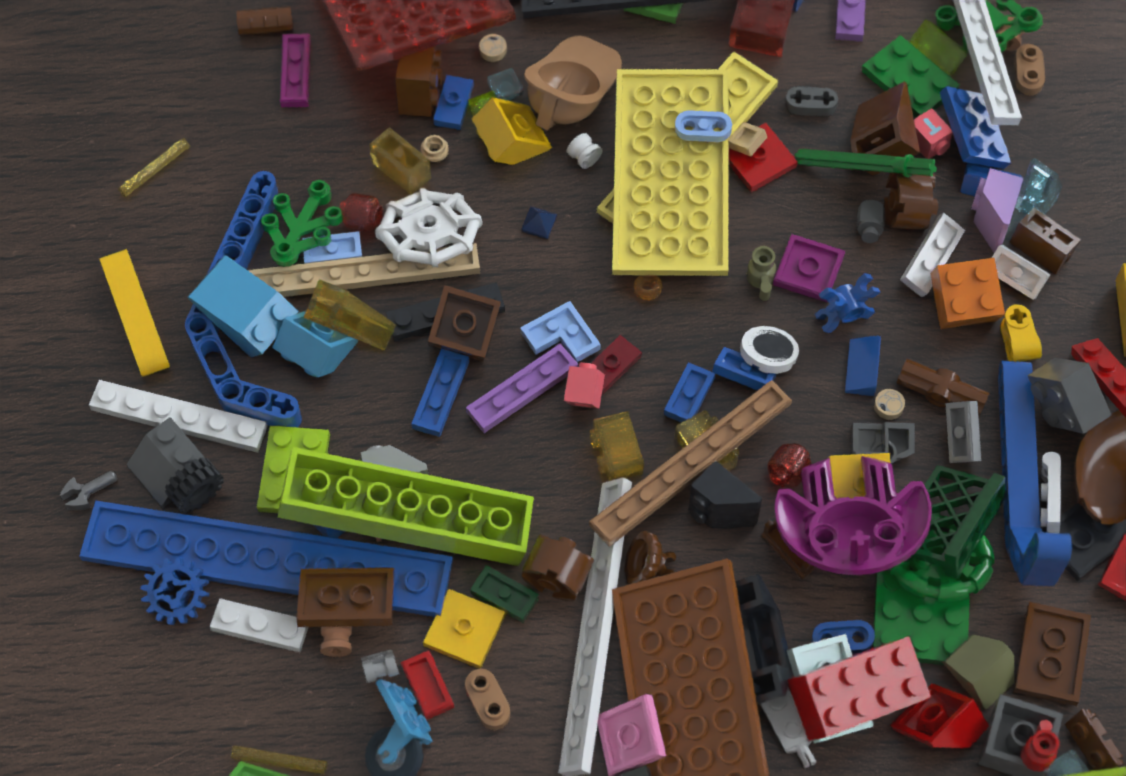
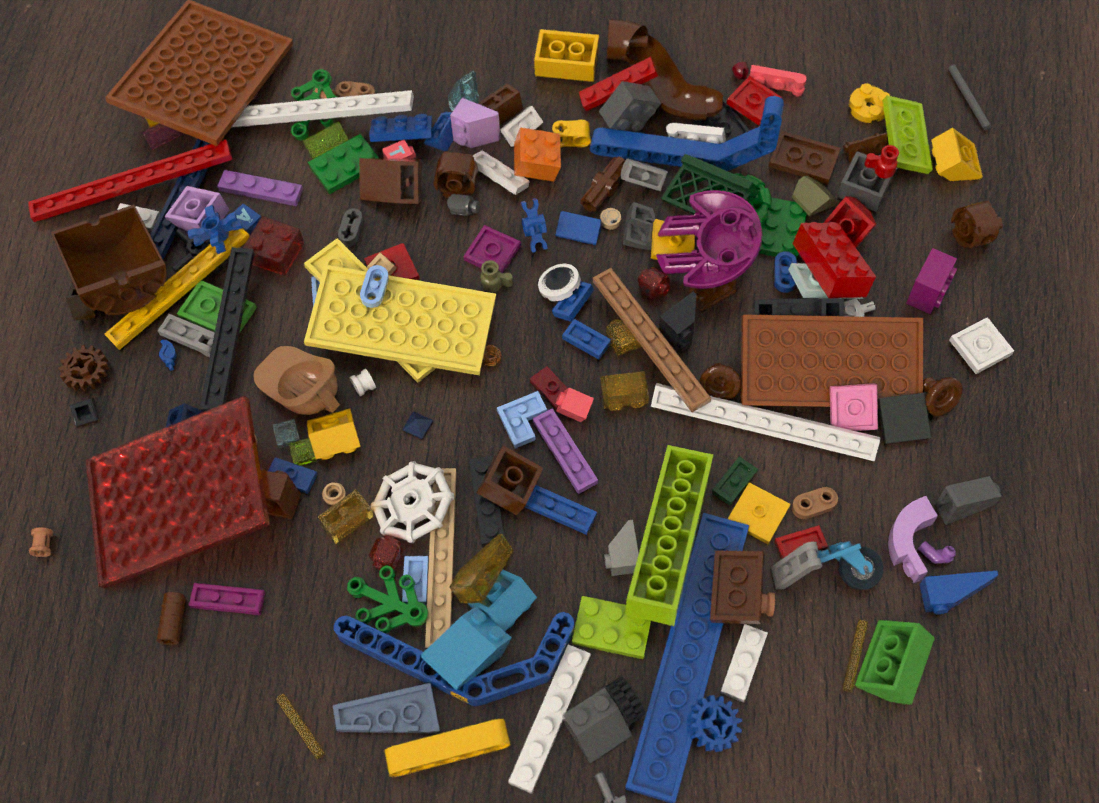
camera: 80 degrees left, 0 degrees up
(174, 259) = (392, 712): none -> sand blue wing
(557, 567) = (723, 438): reddish brown brick -> none
(867, 162) = (423, 192): green axle -> none

